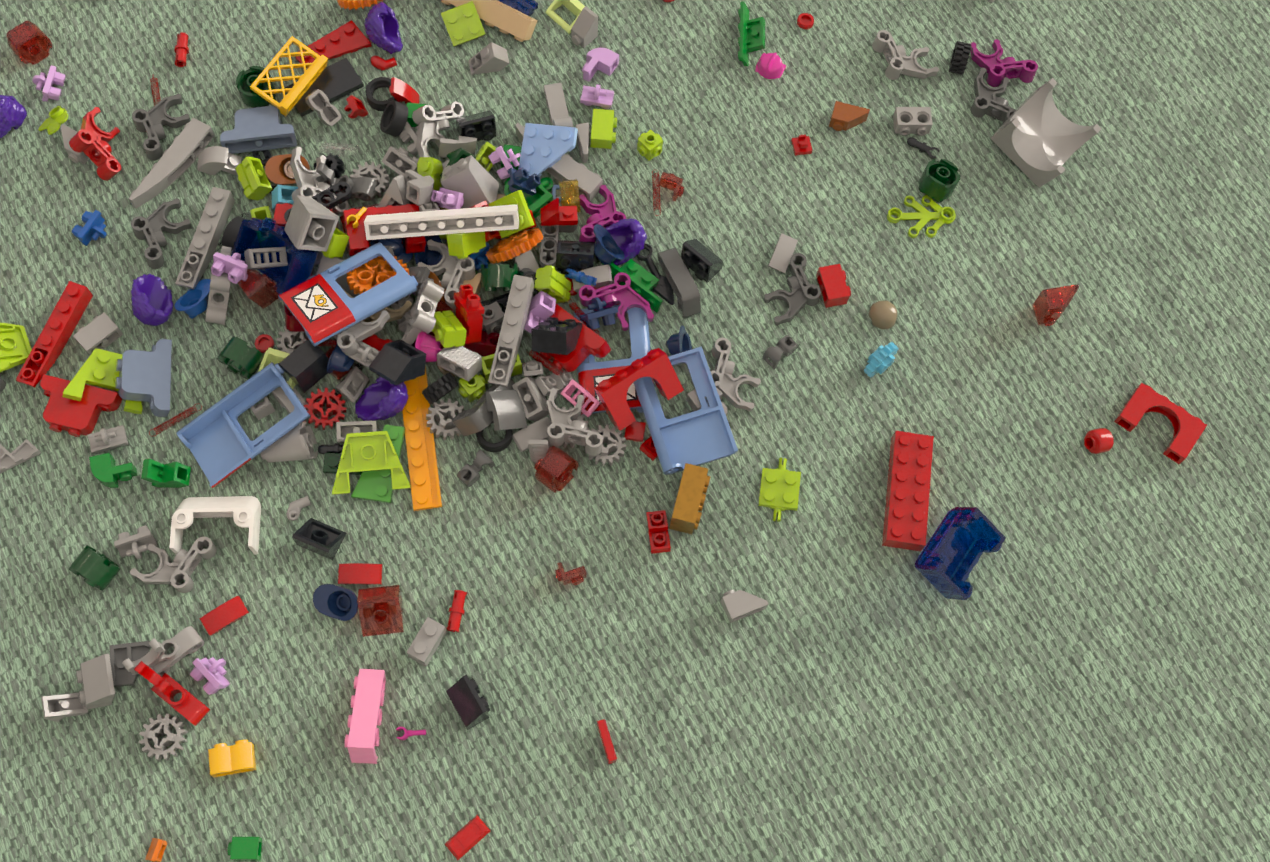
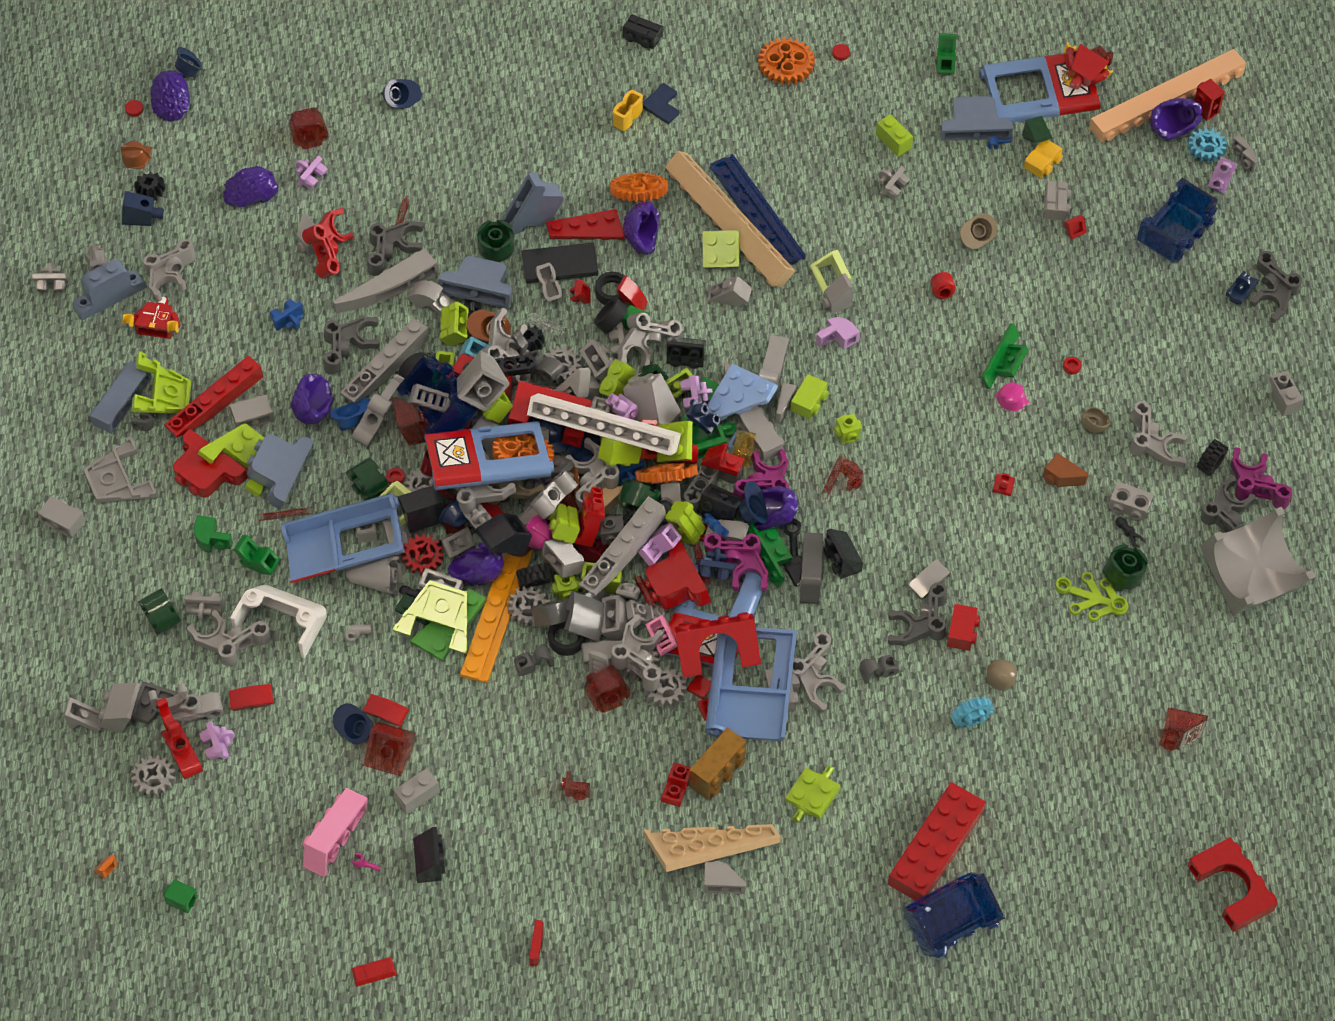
camera: 30 degrees right, 10 degrees down
(57, 117) = (303, 204): lime plate -> none
(107, 439) = (219, 507): light grey hips -> none
(181, 49) = (443, 182): red pin -> none
(231, 265) = (394, 392): lavender hips -> none
(232, 759) = (202, 818): yellow brick -> none
(273, 35) = (533, 203): none -> sand blue brick
(304, 81) = (539, 253): yellow fence -> none
(319, 538) = (363, 665): black slope -> none
(356, 217) = (527, 391): yellow hand -> none
(382, 64) = (624, 259): red arm -> none
(418, 187) = (599, 386): light grey brick -> none
(450, 145) = (665, 362): light grey slope -> none
(456, 611) = (456, 777): red pin -> none
(556, 336) = (663, 568): black slope -> none
(597, 97) = (818, 364): lavender hips -> none
(679, 342) = (782, 619): dark blue piece -> none
(711, 579) = (706, 844): none -> tan wing
(849, 61) = (1094, 414): none -> dark tan hair
(1099, 440) = (1158, 875): red head -> none

